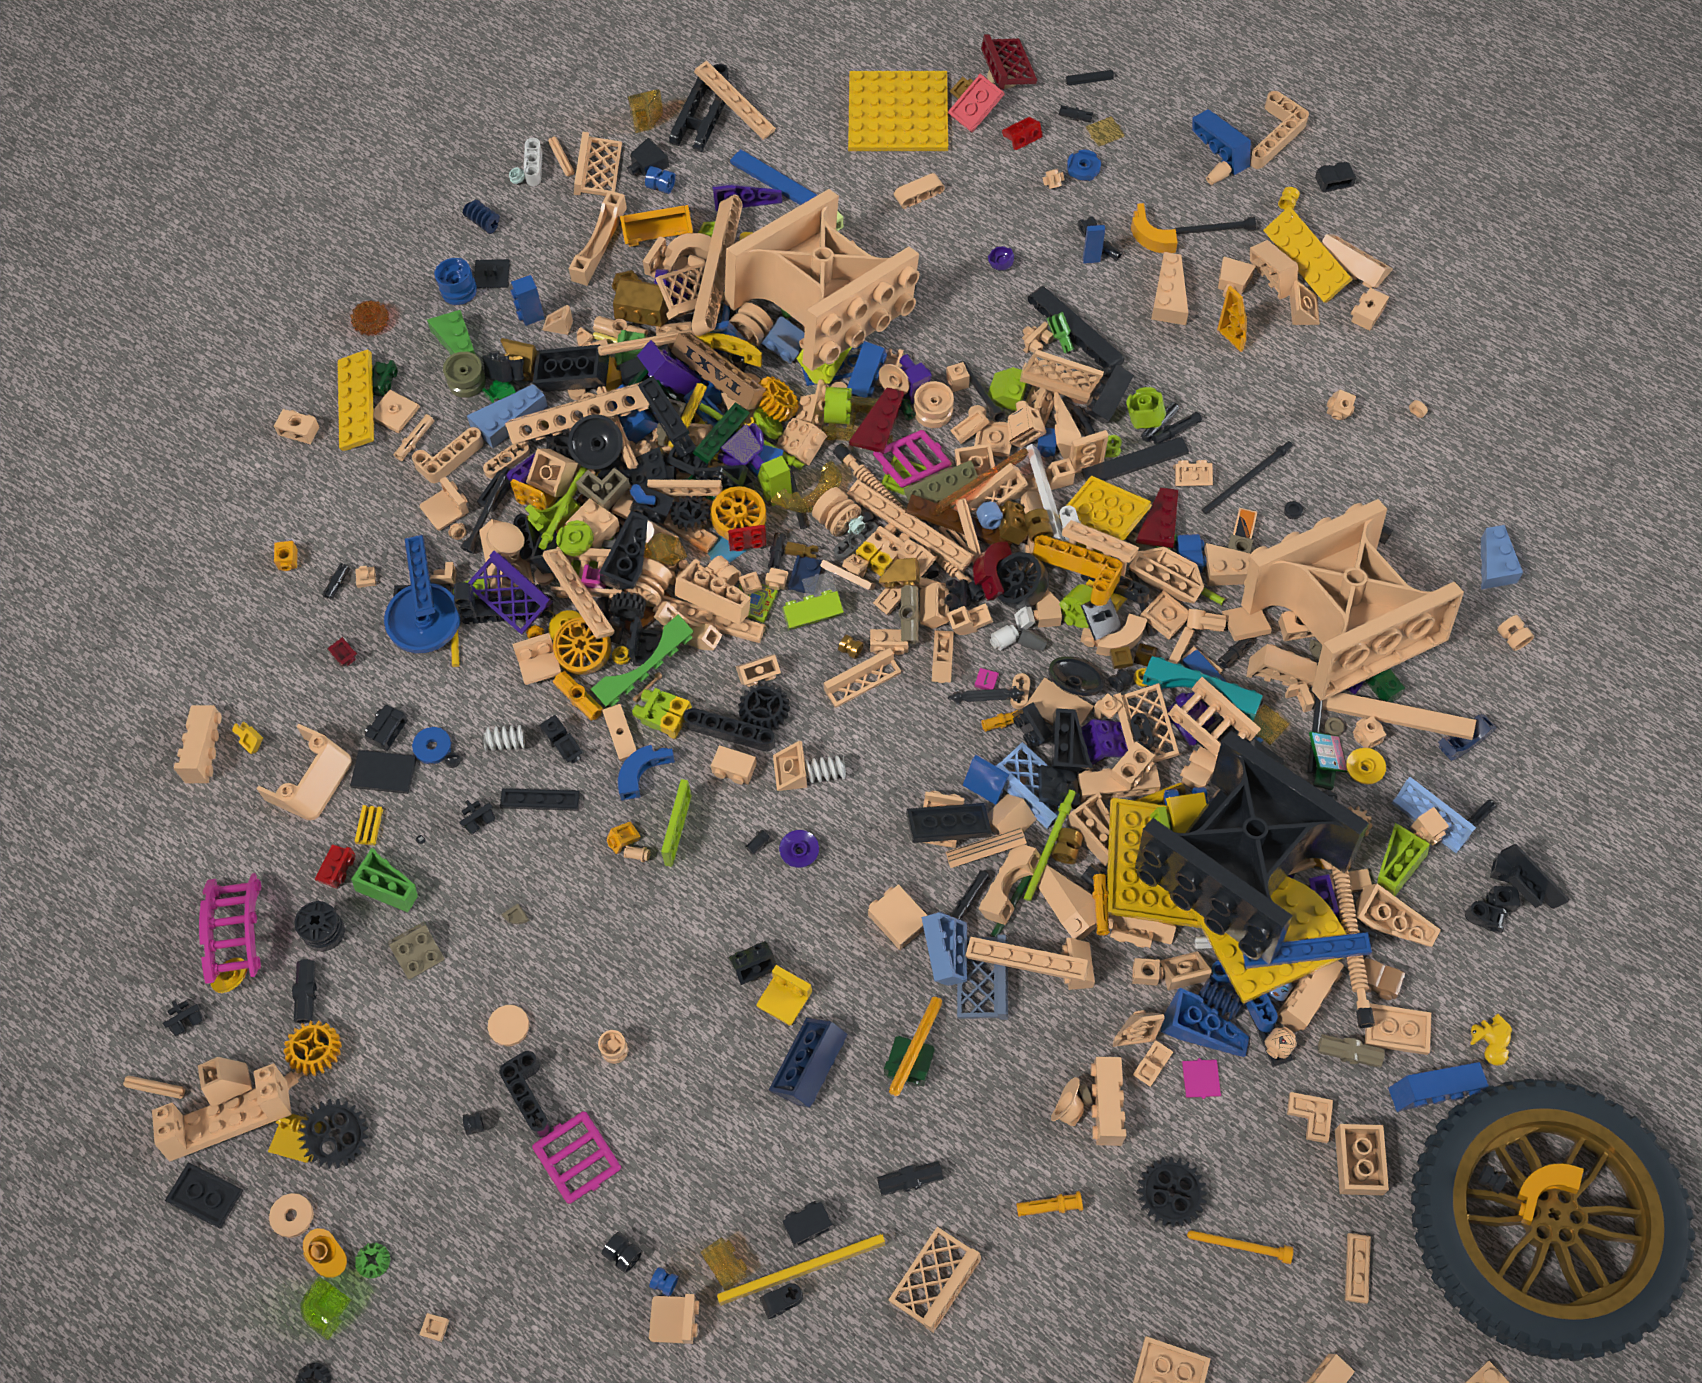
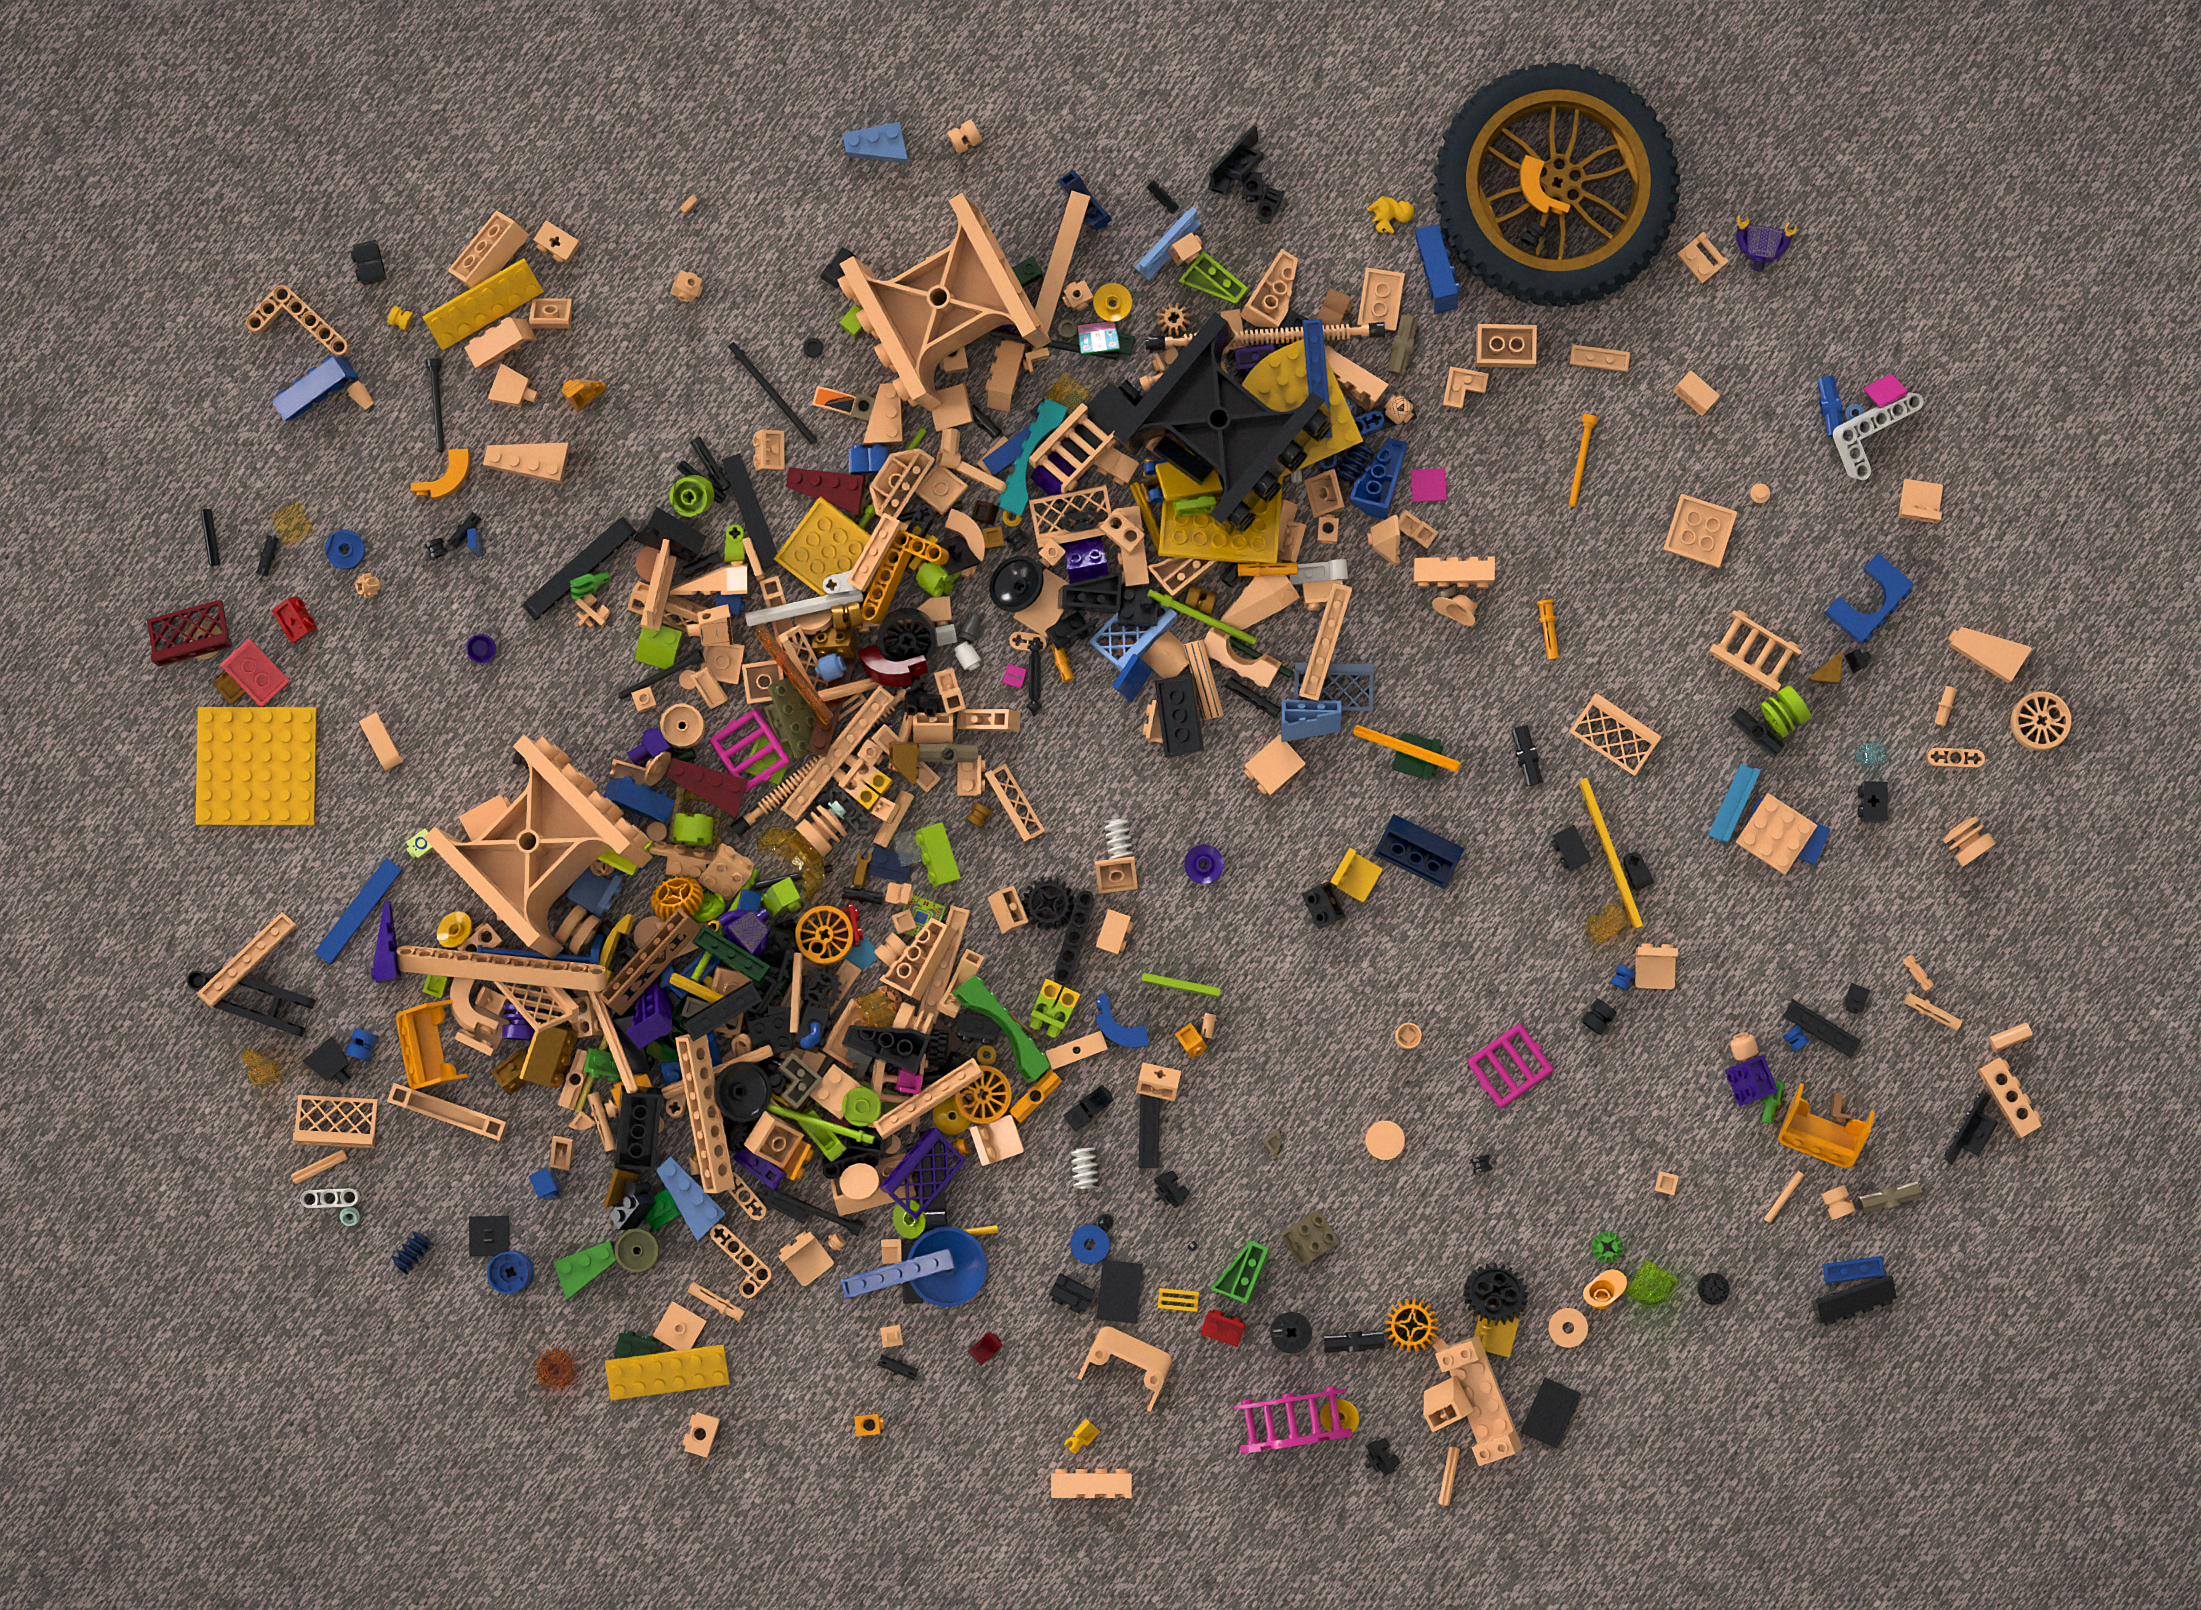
camera: 90 degrees left, 20 degrees up
(527, 1098) = (1456, 1113): black beam -> none
(583, 804) = (1158, 1081): none -> light nougat brick
(757, 842) = (1193, 904): black pin -> none
(1101, 961) = (1320, 572): none -> white plate
(1167, 1212) = (1519, 513): black gear -> none

